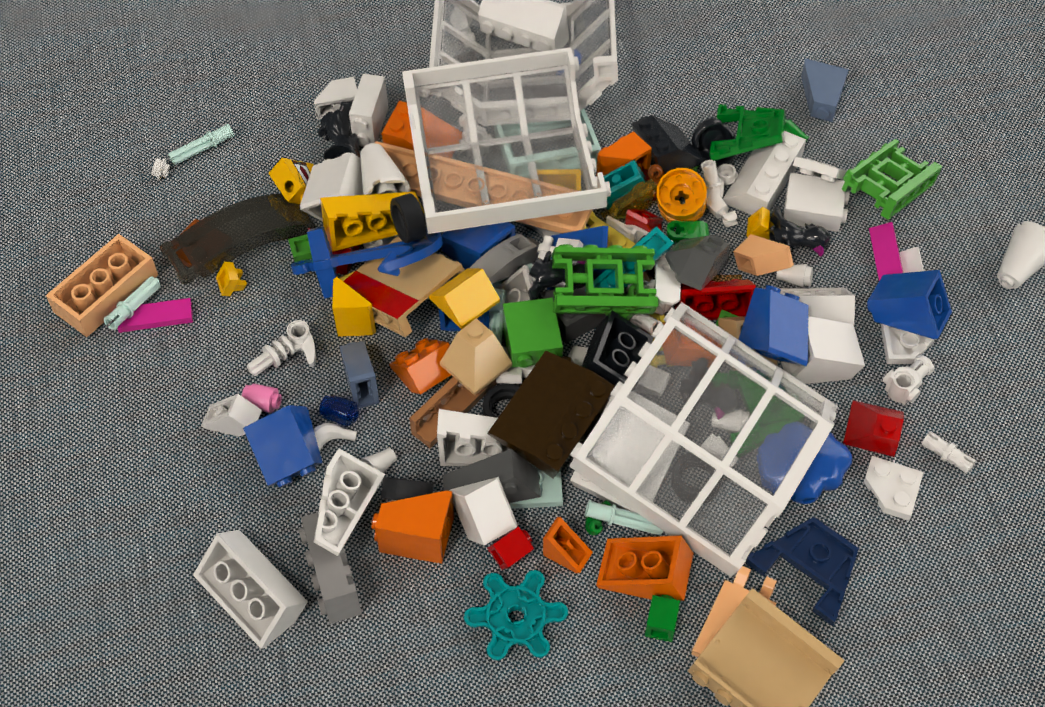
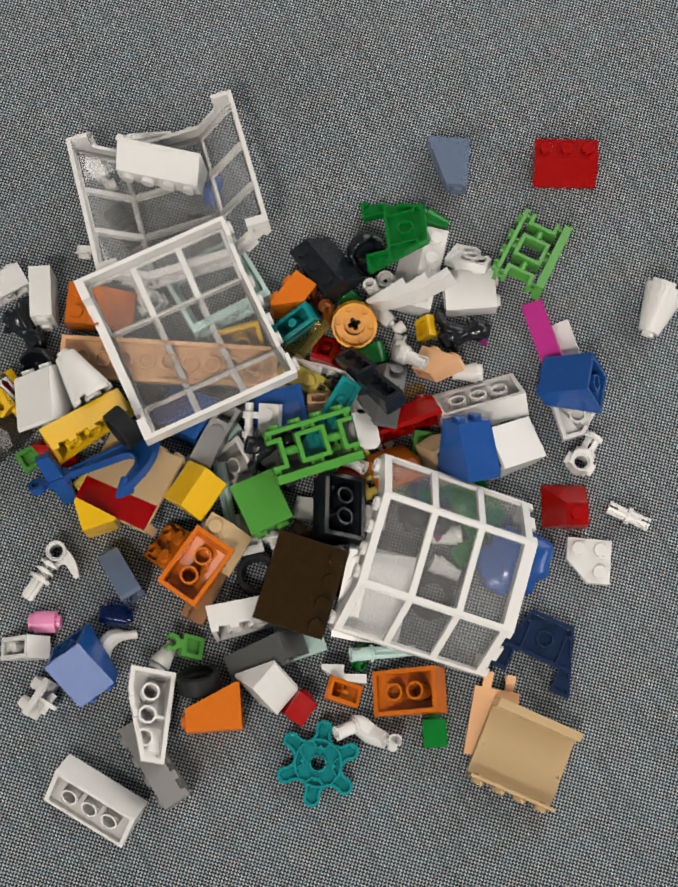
camera: 20 degrees left, 20 degrees up
(227, 470) = (41, 699): none -> white hips
(407, 457) = (188, 646): none -> bright green plate
(440, 368) = (196, 567): none -> orange slope
(582, 596) = (367, 732): none -> white arm
(589, 536) = (338, 671): none -> white slope
(683, 234) = (366, 375): none -> black slope
(730, 232) = (403, 354): none -> white arm
(754, 176) = (416, 290): none -> white slope
(946, 113) = (564, 163): none -> red slope

